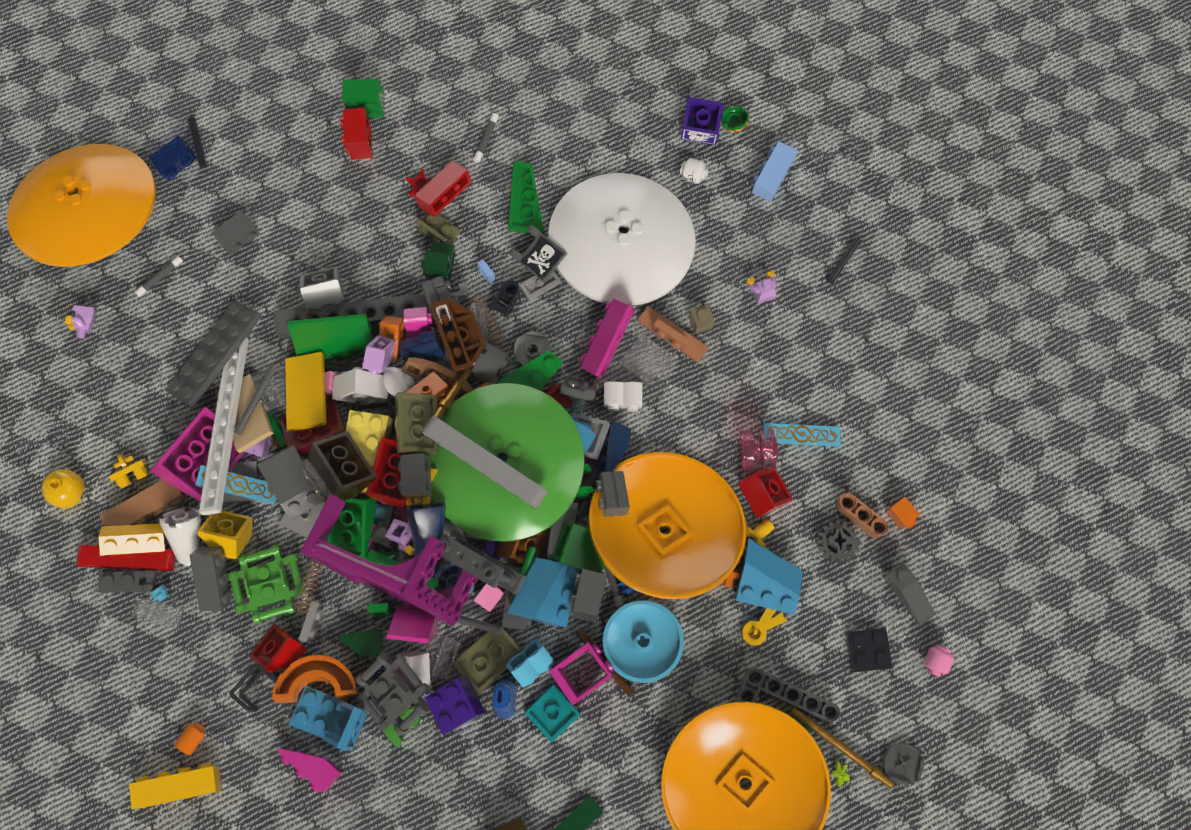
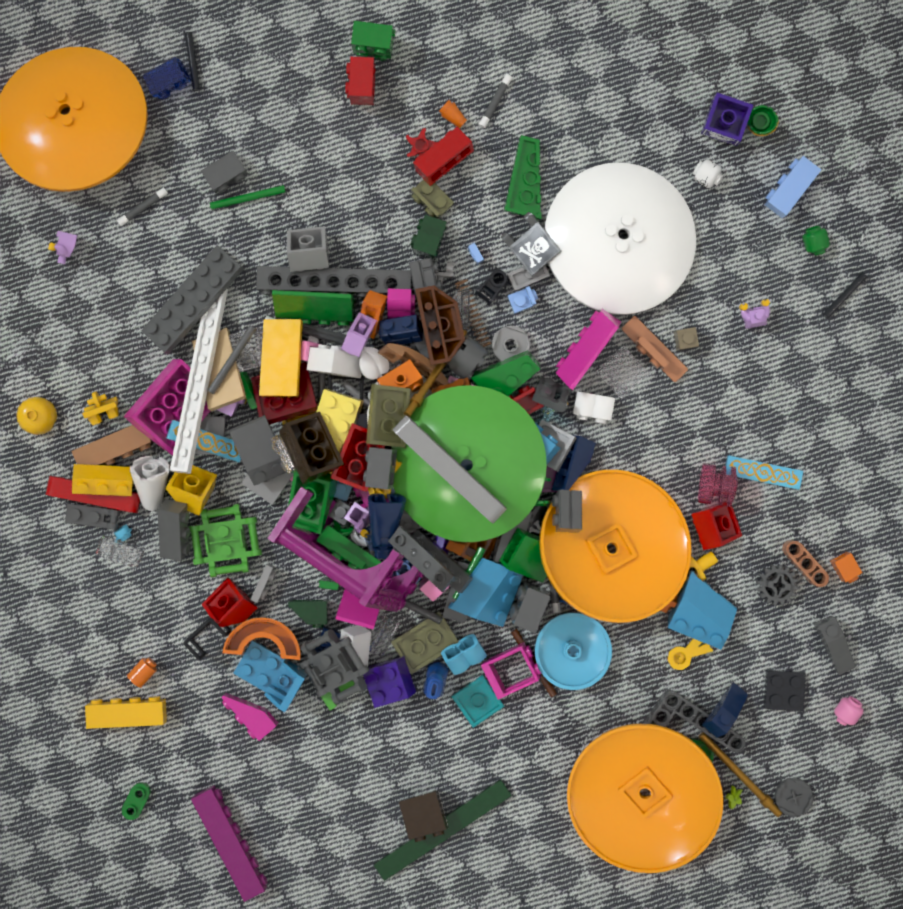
camera: 15 degrees right, 15 degrees up
(261, 253) = (247, 197): none -> green bar
(308, 588) = (260, 574): medium nougat piece -> none
(446, 152) = (452, 114): none -> orange cone
(538, 307) = (522, 299): none -> light blue bracket
(806, 214) = (816, 240): none -> green head
(812, 679) = (726, 711): none -> dark blue slope

